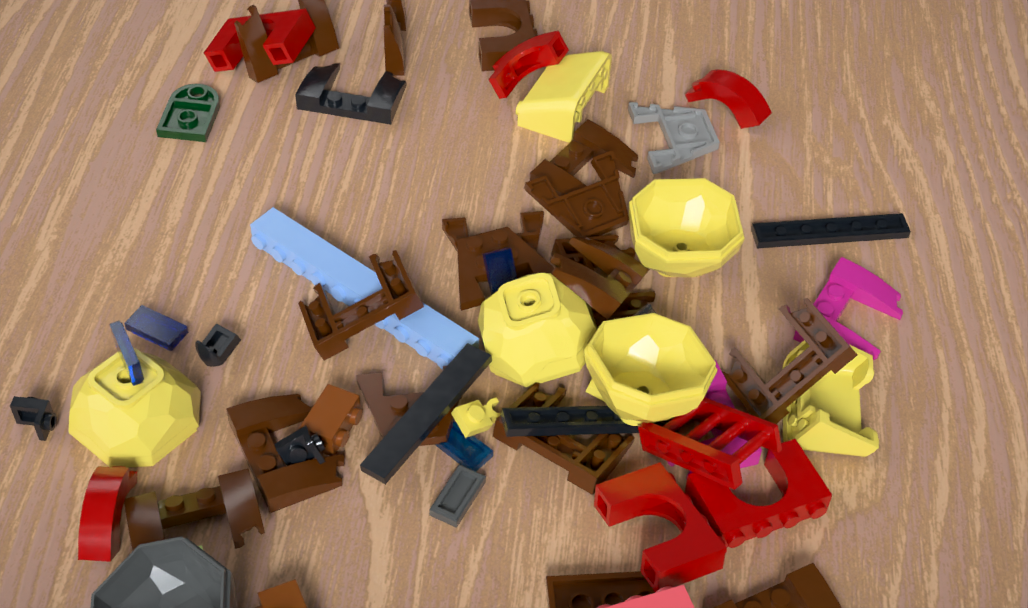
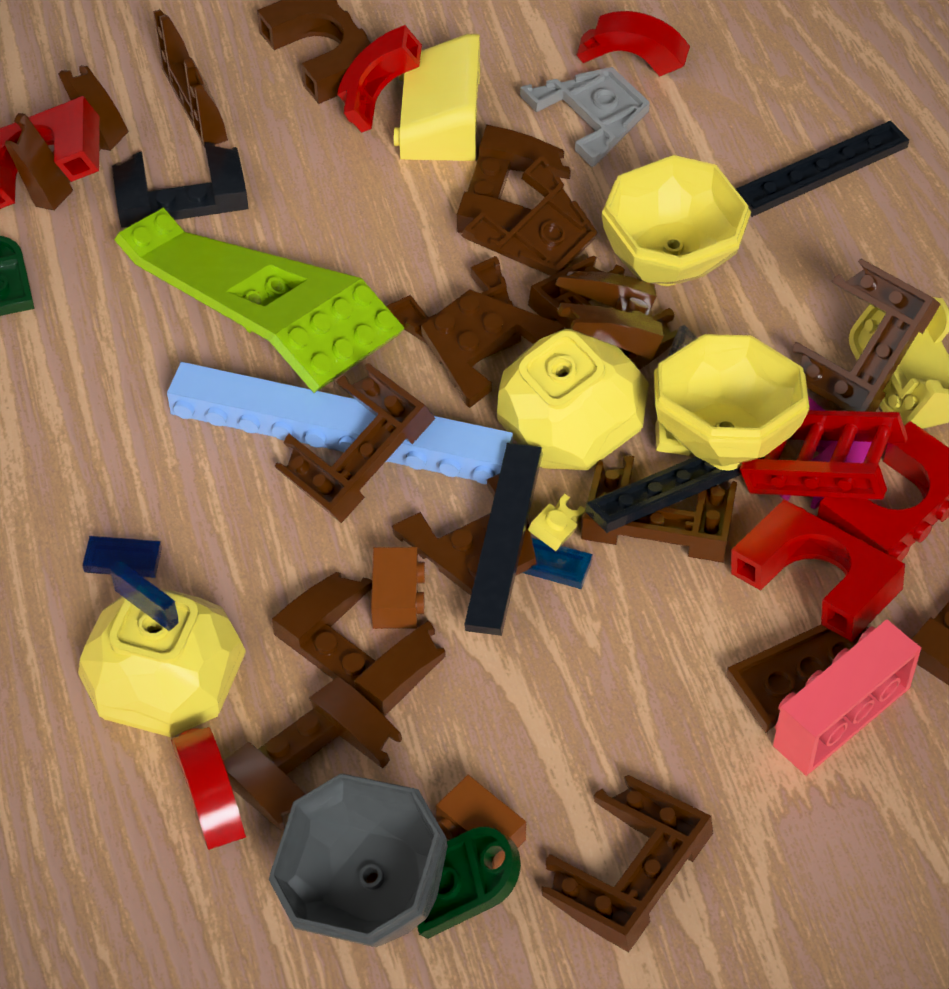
camera: 20 degrees left, 5 degrees up
(35, 413) = (45, 708): black bracket -> none
(217, 346) = (211, 551): black plate -> none
(301, 447) = (384, 630): black bracket -> none
(373, 216) = (309, 313): none -> lime wing
(457, 496) = (580, 618): dark grey tile -> none
(499, 268) = (493, 347): clear blue tile -> none
(856, 283) = (881, 221): dark pink wedge -> none

